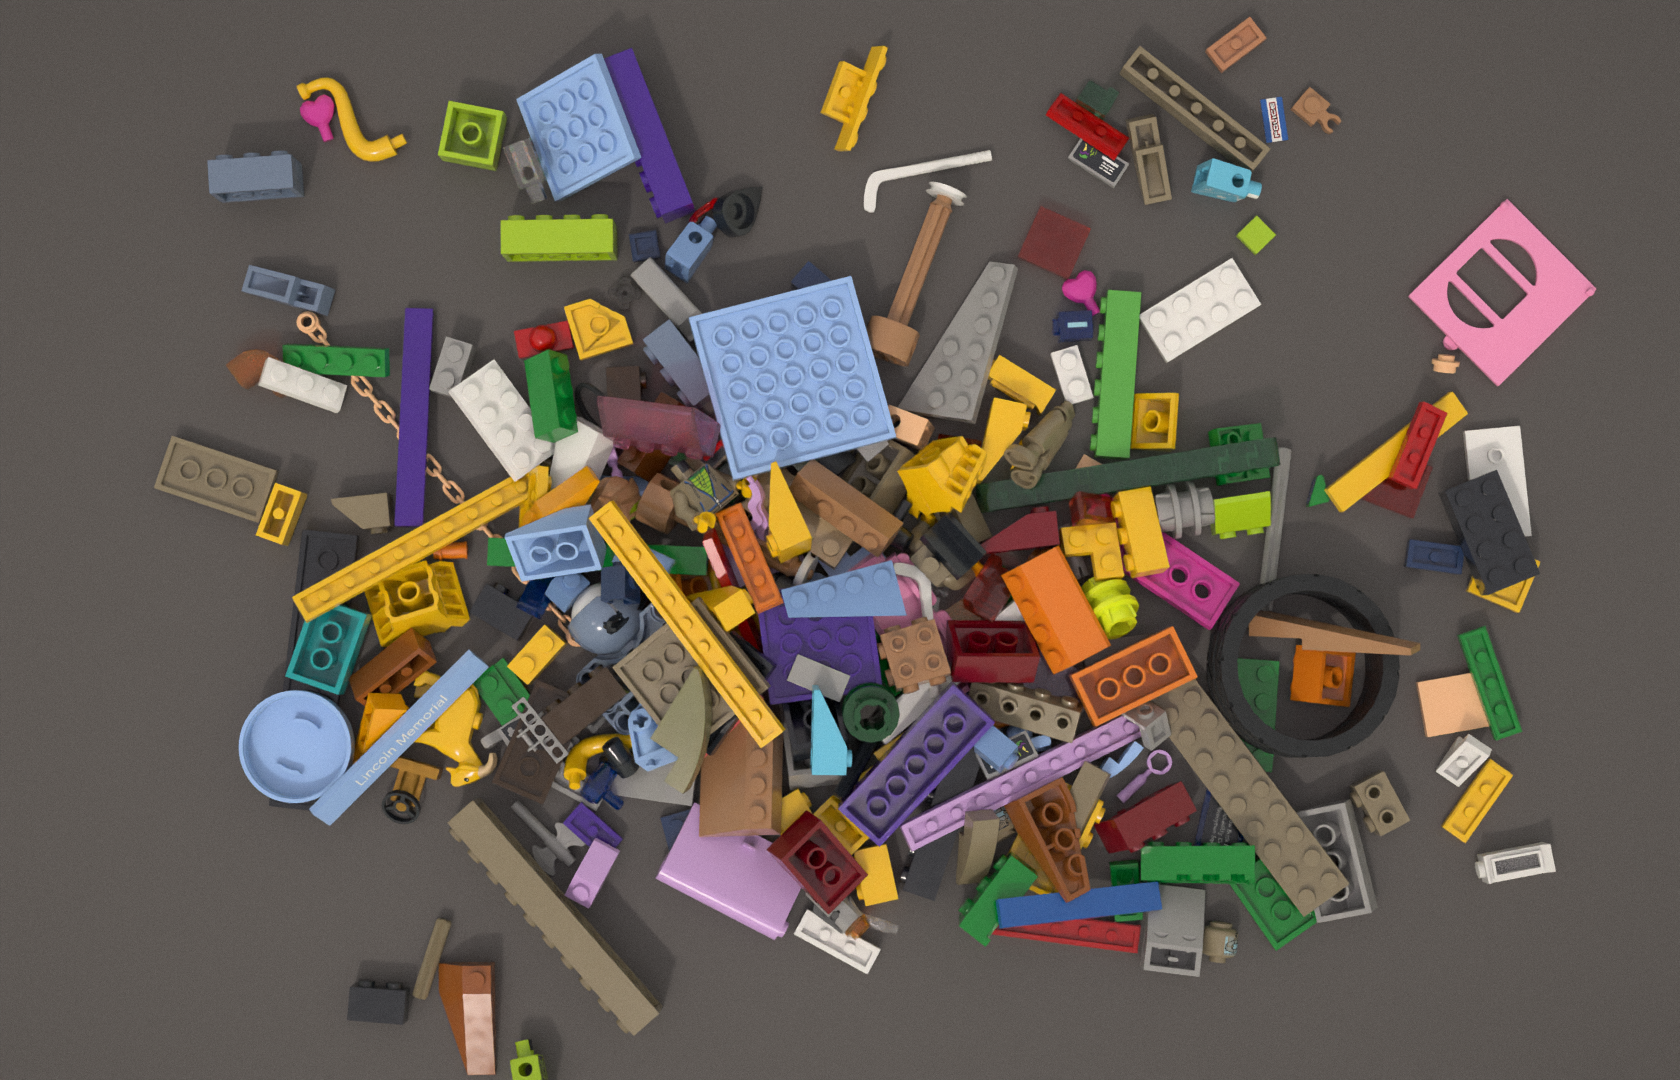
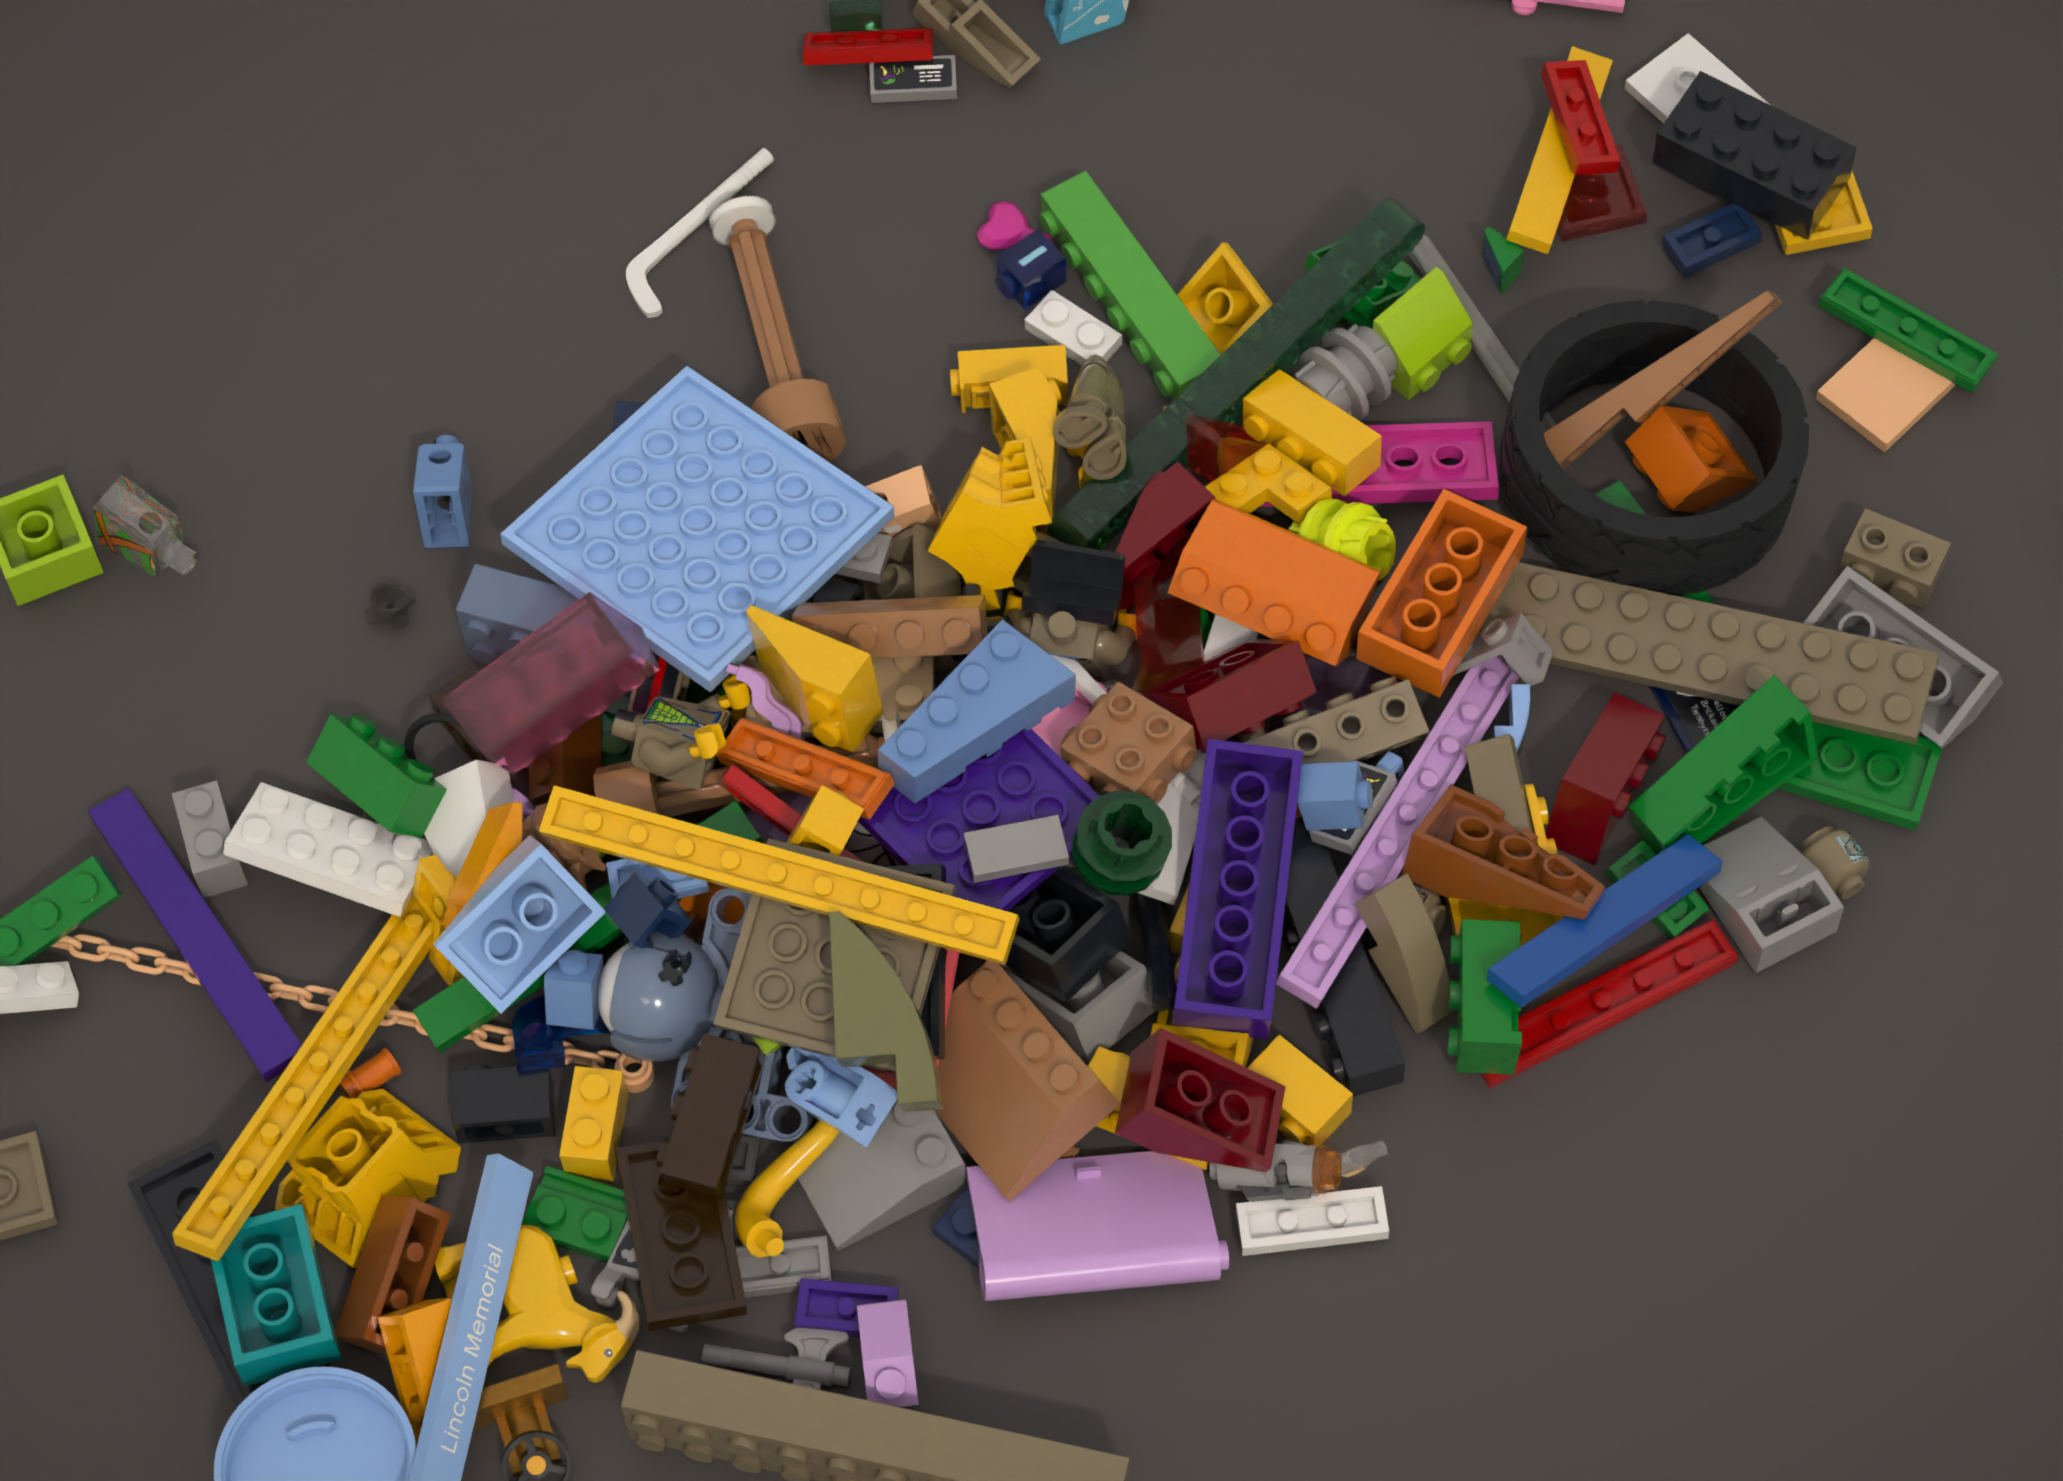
camera: 35 degrees left, 25 degrees down
(281, 514) = (82, 1179): yellow brick -> none
(369, 512) = (206, 1100): dark tan slope -> none
(527, 739) = (655, 1189): light grey piece -> none
(543, 337) = (297, 739): red tile -> none
(559, 238) = (251, 583): lime brick -> none
(578, 127) = (185, 428): light blue plate -> none
(596, 329) = (382, 669): yellow plate -> none
(598, 787) = (809, 1235): clear blue piece -> none
(619, 758) = (815, 1172): black piece -> none
(644, 246) = (377, 535): dark blue tile -> none
(659, 164) = (288, 392): dark purple brick -> none
(666, 295) = (443, 564): light grey piece -> none
(734, 211) = (472, 414): black piece -> none
(828, 747) = (1089, 909): medium azure slope -> none
(850, 95) = (531, 195): yellow bracket -> none
(960, 364) = (912, 388): light grey wing -> none
(1054, 243) = (928, 196): clear red plate -> none
(1141, 779) = (1560, 741): lavender piece -> none
(1199, 310) = (1178, 159): white plate -> none
(1255, 235) = (1181, 37): lime tile -> none
(1445, 363) = (1537, 24): light nougat plate -> none
(1463, 759) = (1954, 435): white slope -> none
(1477, 800) = (2015, 481): yellow tile -> none

